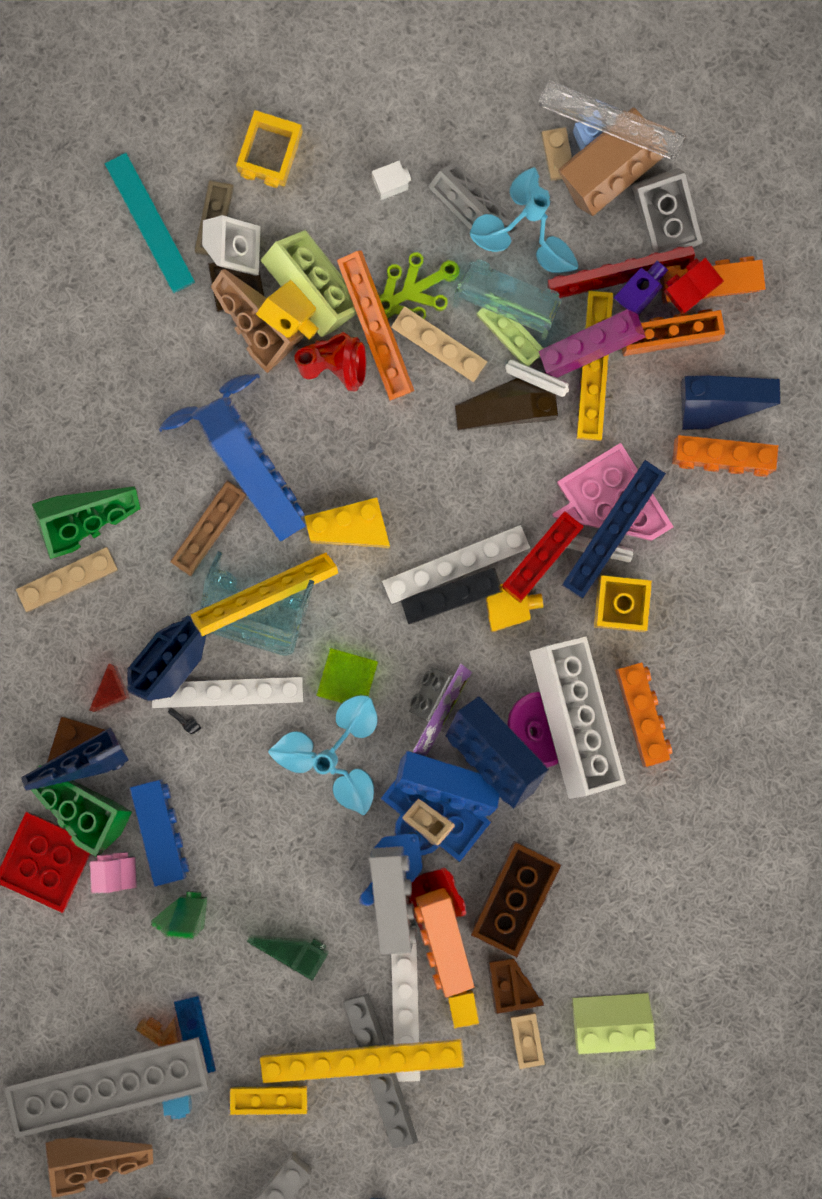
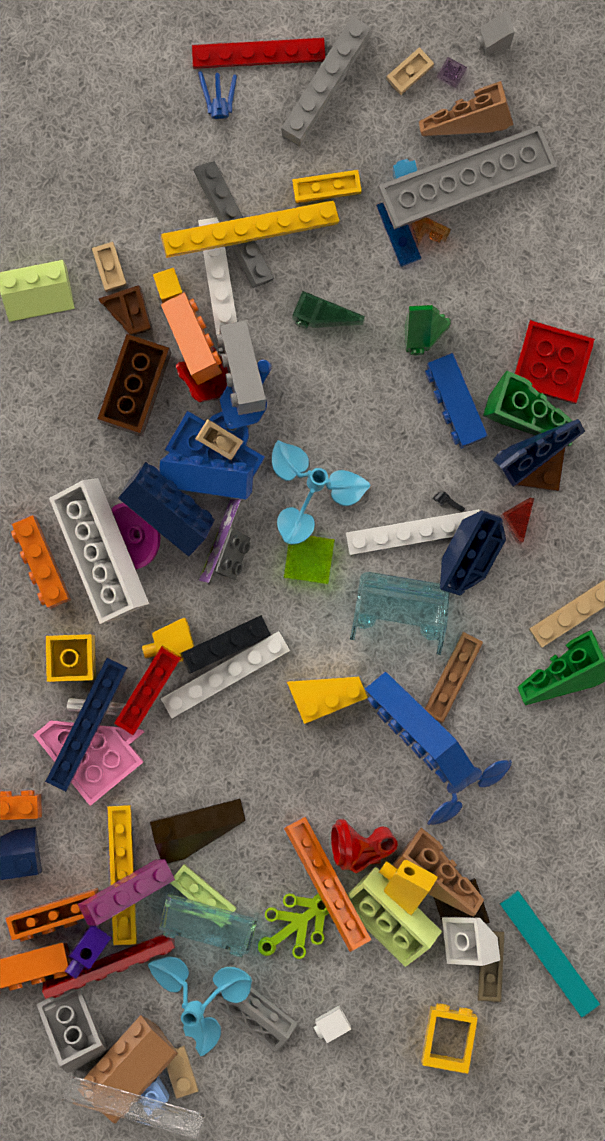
camera: 175 degrees left, 0 degrees up
(113, 873) = (490, 359): bright pink brick -> none
(263, 594) = (393, 622): yellow plate -> none
(439, 344) = (267, 874): tan plate -> none
(537, 378) = (173, 854): white axle -> none
(693, 285) = (40, 959): red brick -> none

